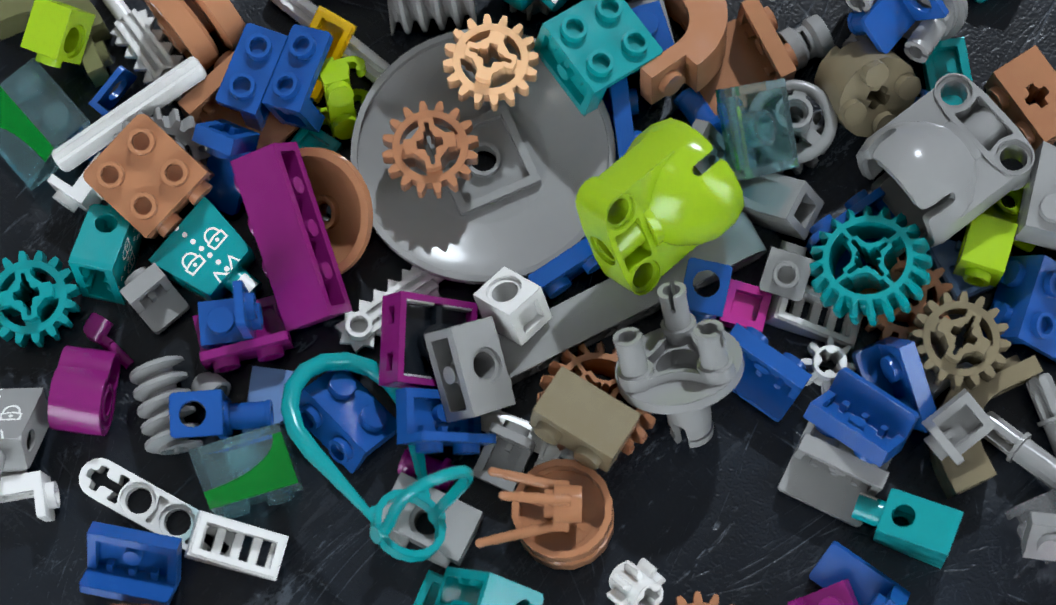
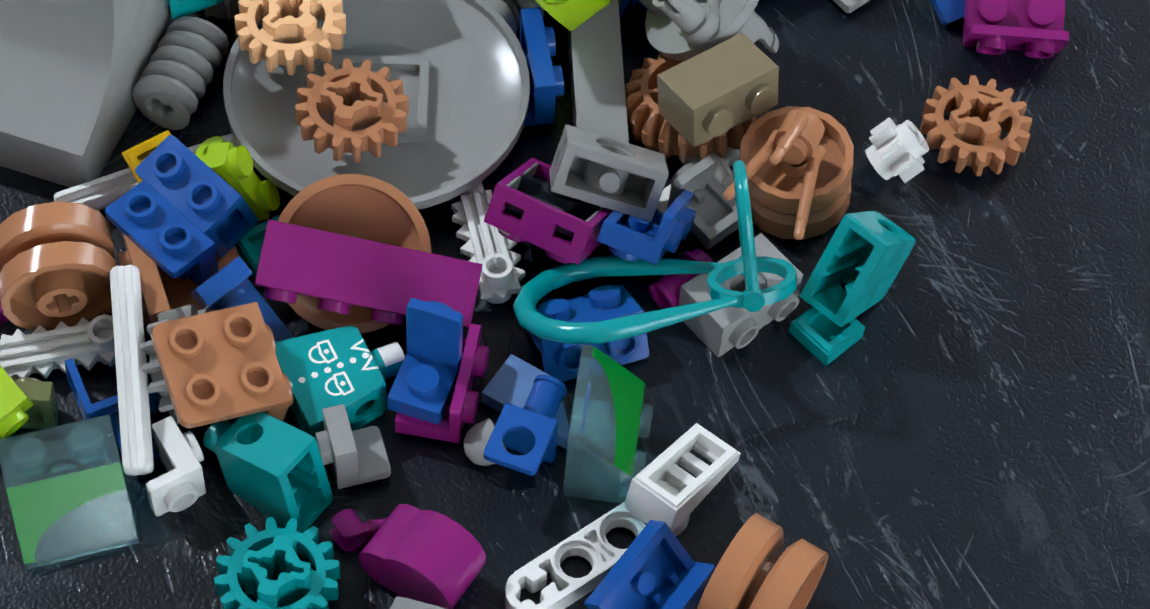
camera: 70 degrees left, 20 degrees down
(156, 383) = (484, 488): light grey piece -> none
(514, 304) = (551, 106): white brick -> none

